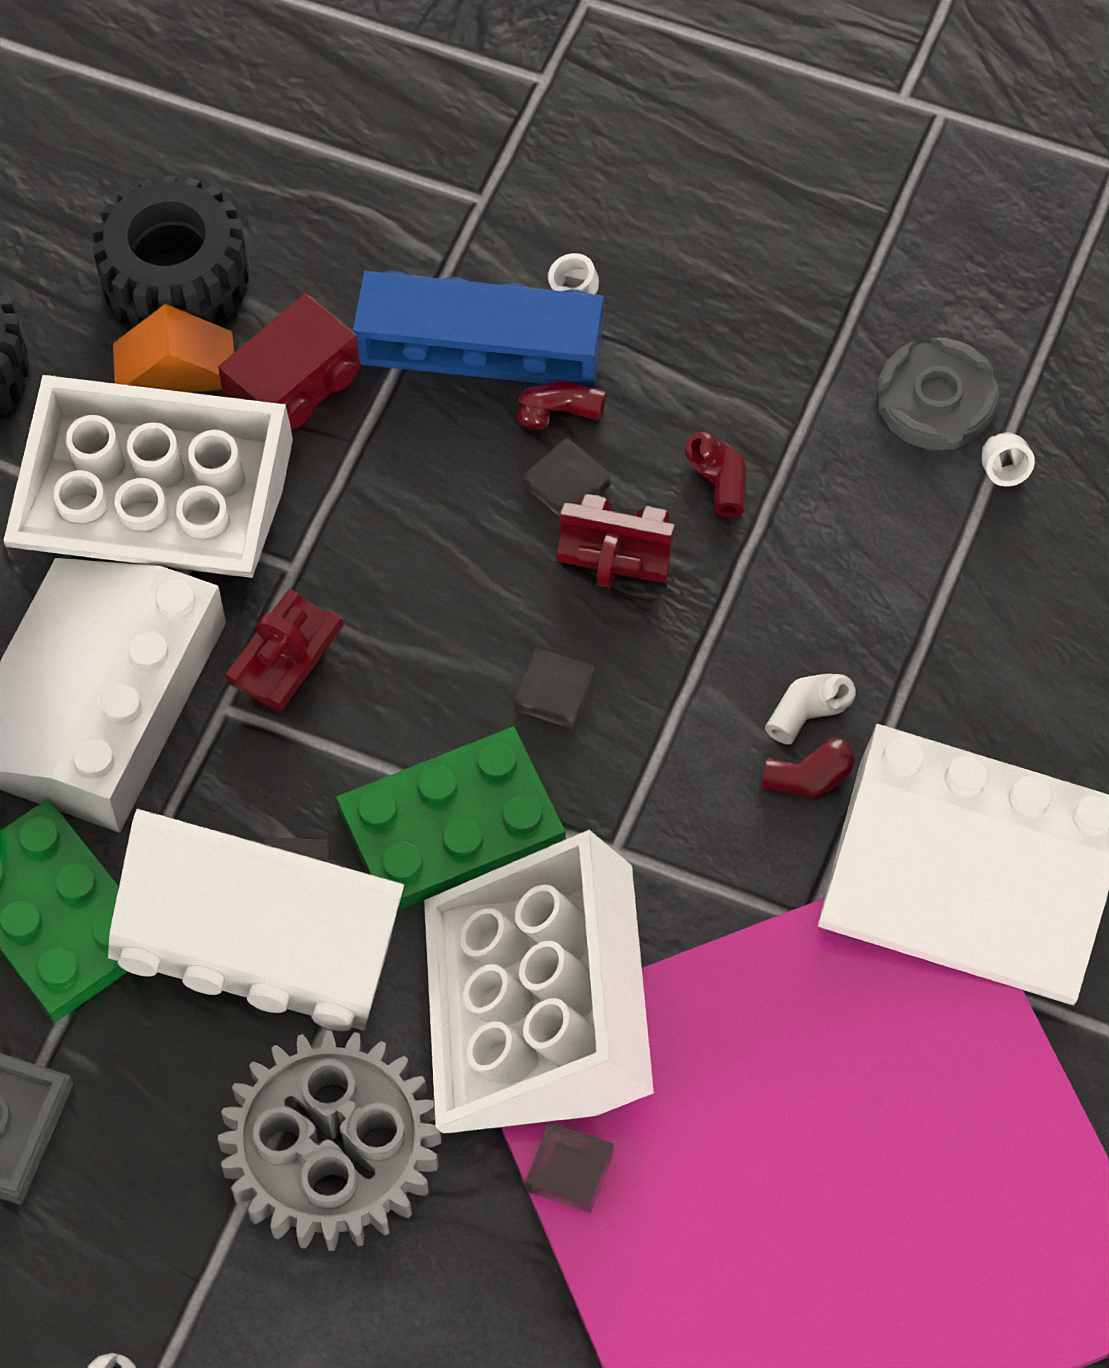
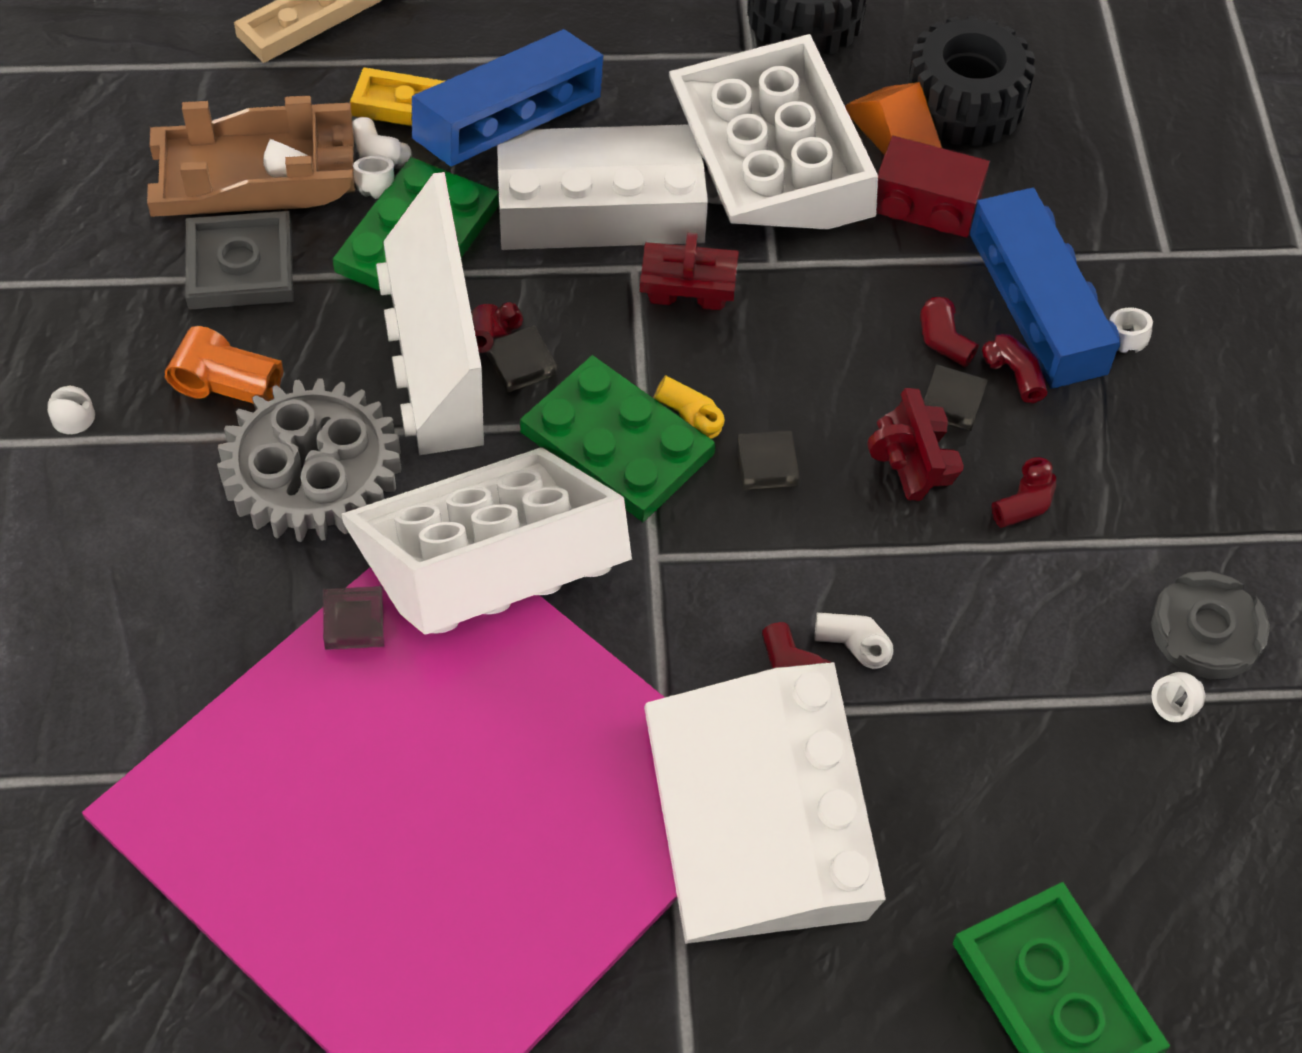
camera: 60 degrees right, 5 degrees down
(139, 1203) = (210, 364): none -> orange piece
(454, 728) = (691, 406): none -> yellow arm
(478, 450) = (941, 334): none -> dark red arm

